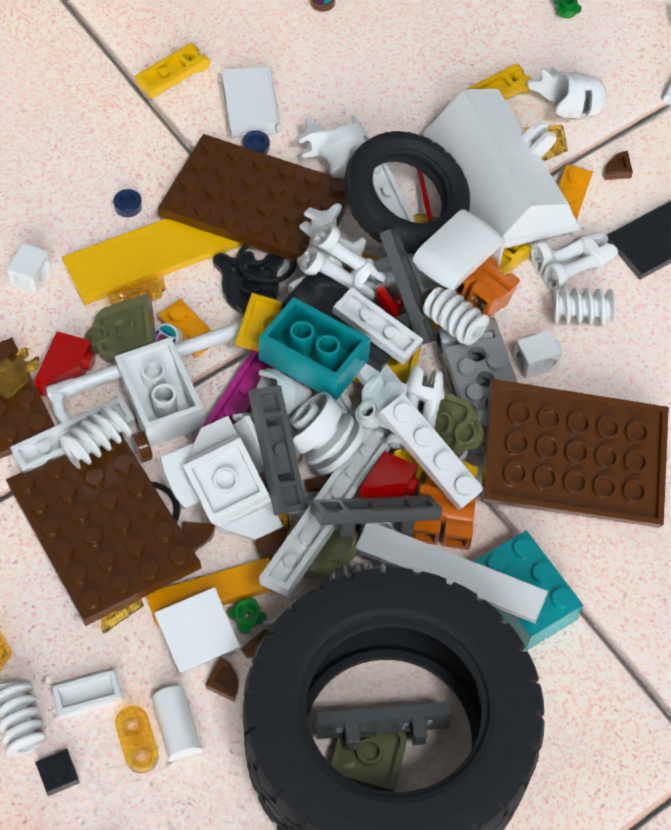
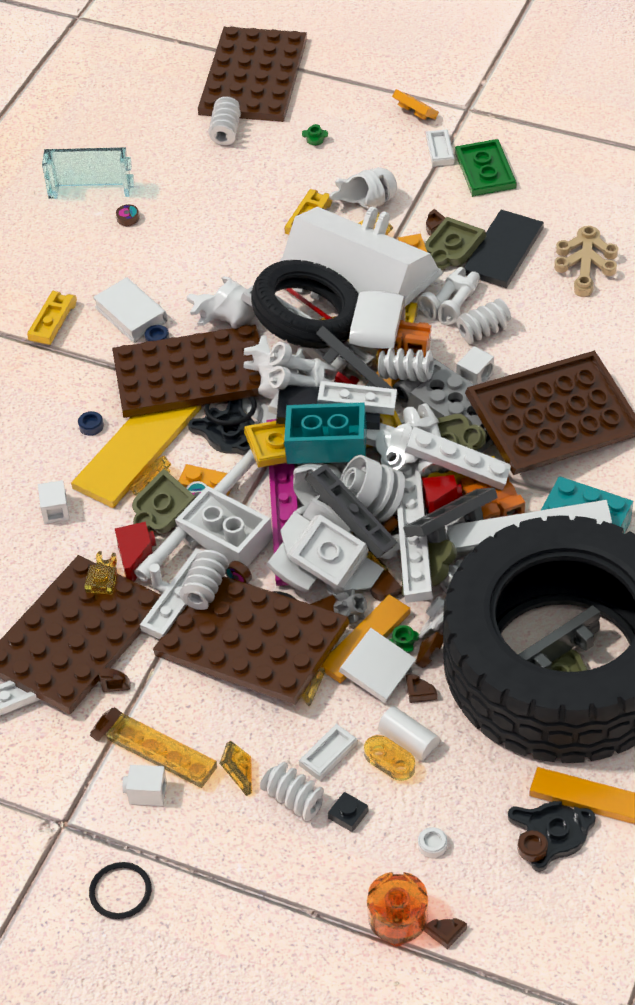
camera: 25 degrees left, 10 degrees down
(218, 548) = (351, 605): none -> light grey gear
(617, 200) = (453, 242): none -> olive plate

